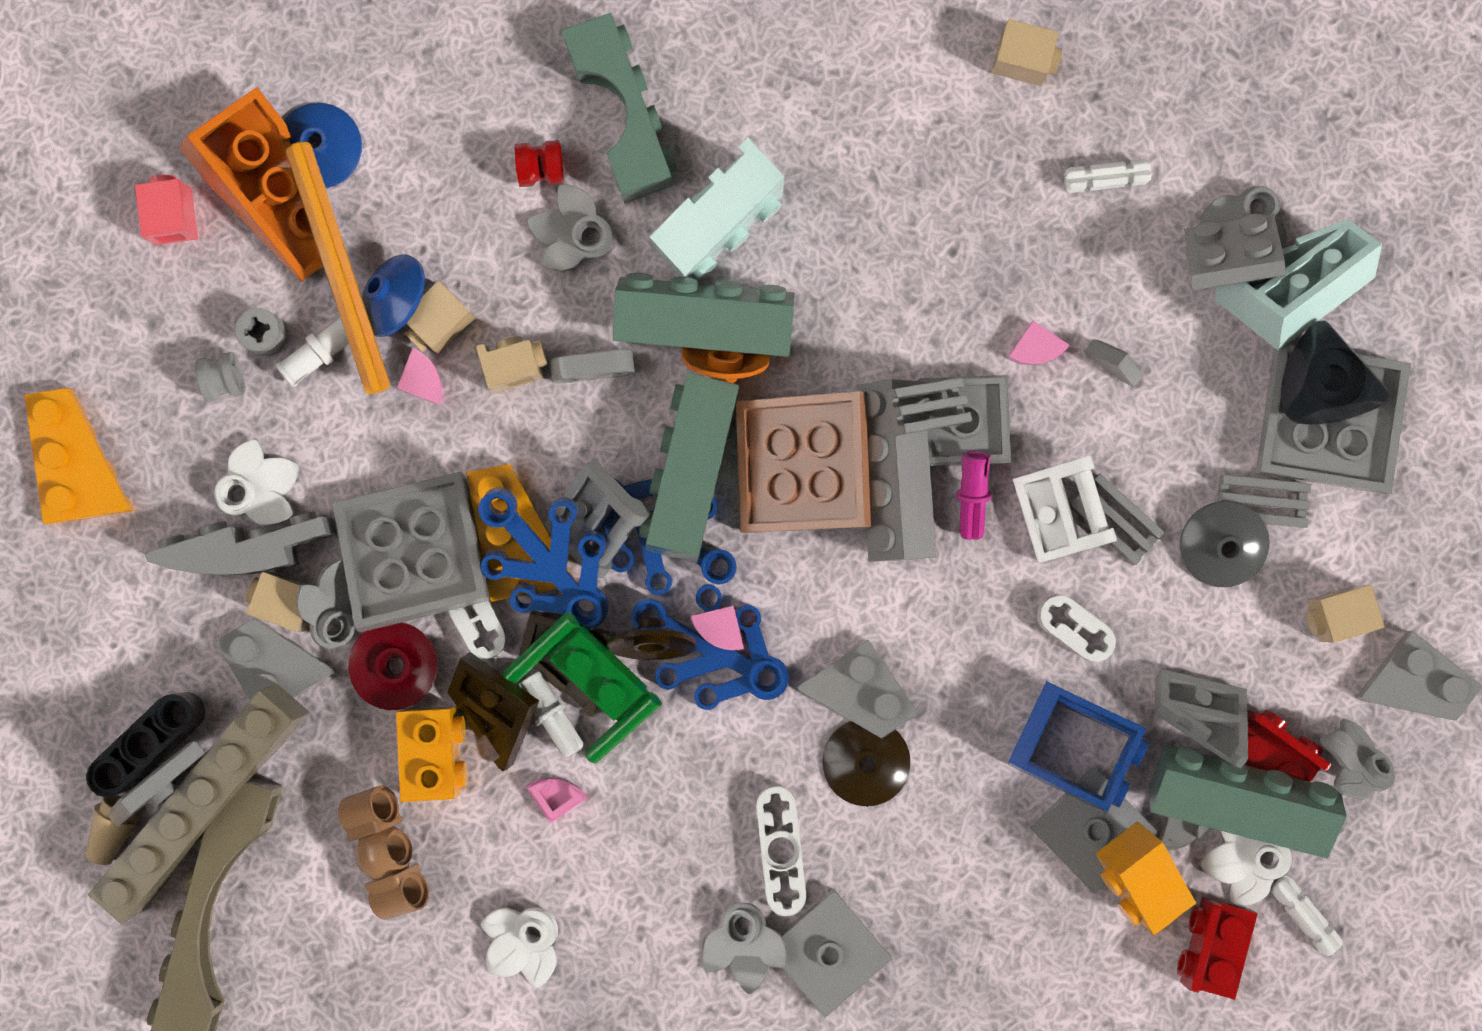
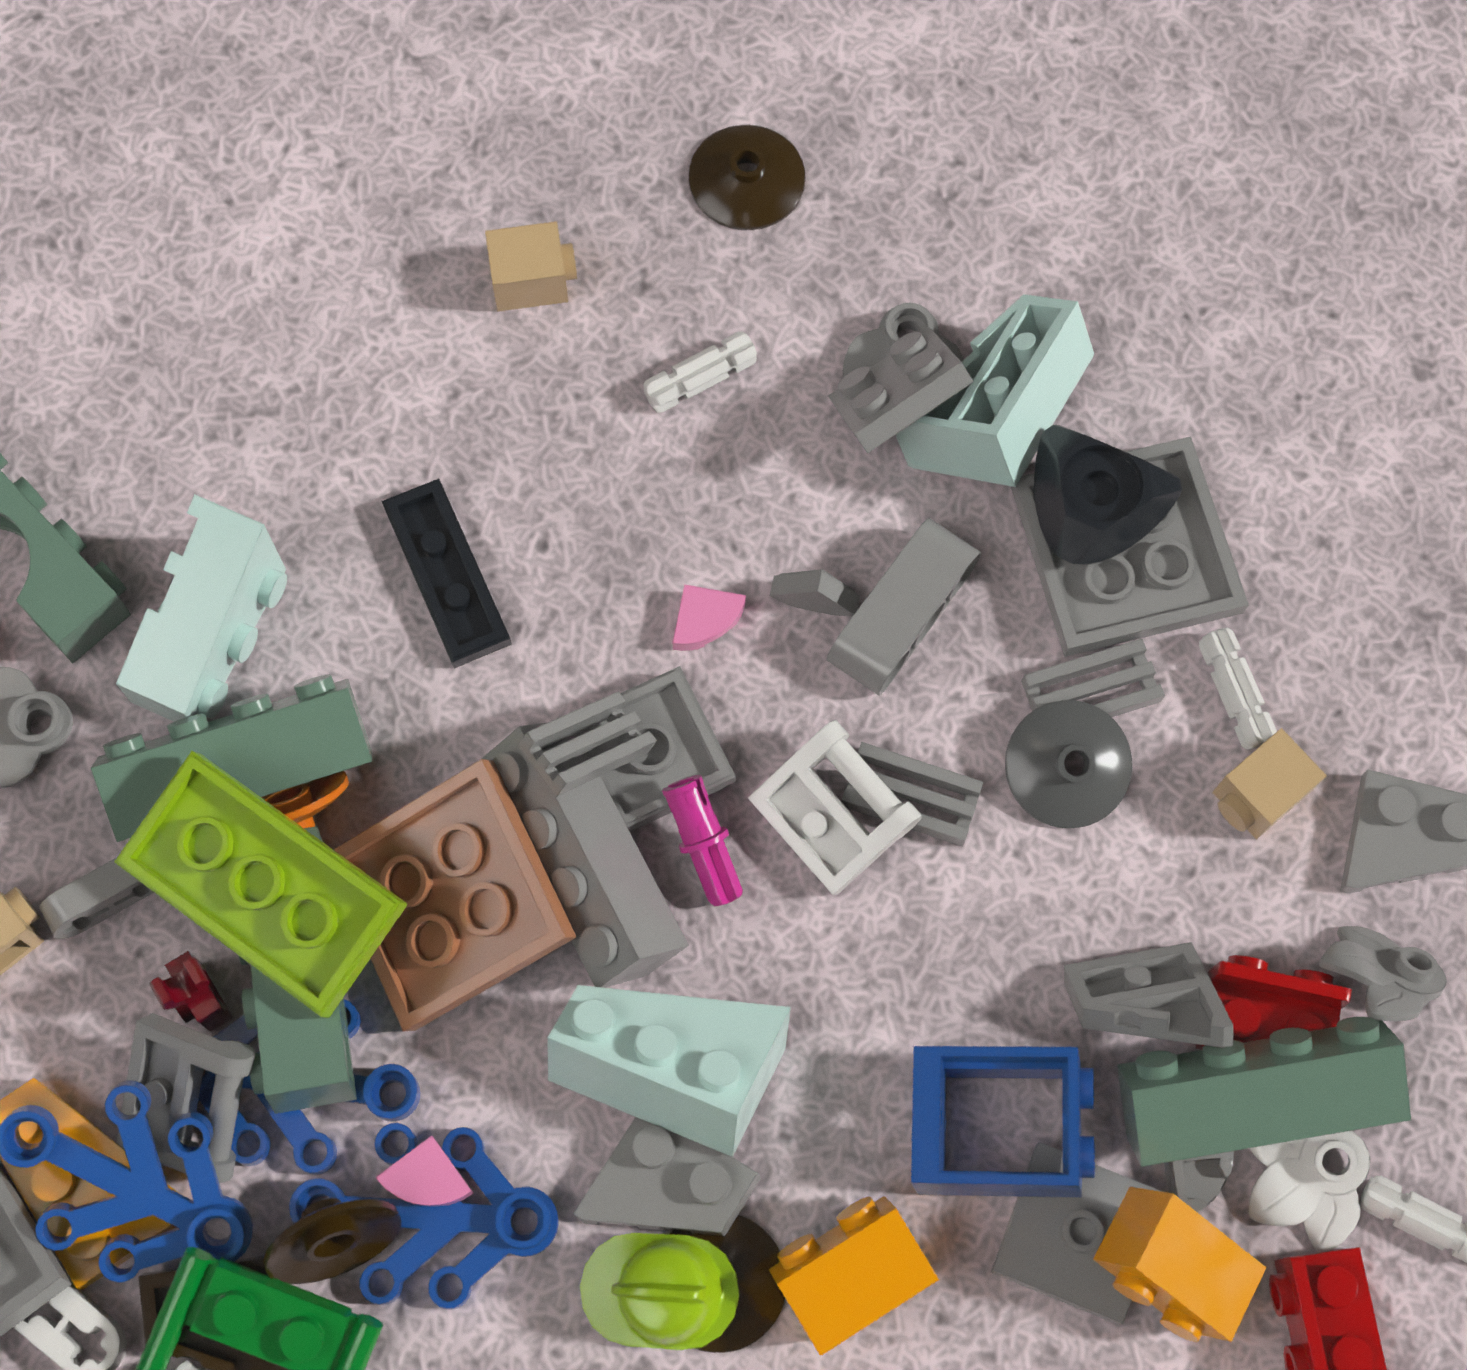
camera: 25 degrees left, 15 degrees down
(623, 454) = (191, 993): none -> dark red plate
(692, 411) = (260, 884): none -> lime tile
(829, 753) = (659, 1291): none -> lime piece
(884, 245) = (446, 573): none -> black tile
(895, 622) = (670, 1058): none -> light aqua wedge
(948, 795) = (852, 1272): none -> light orange brick
(1069, 636) = (929, 946): white beam -> none
(1168, 396) = (903, 606): none -> light grey beam
(1189, 60) = (740, 197): none -> dark brown dish
(1356, 542) = (1237, 688): none -> white axle

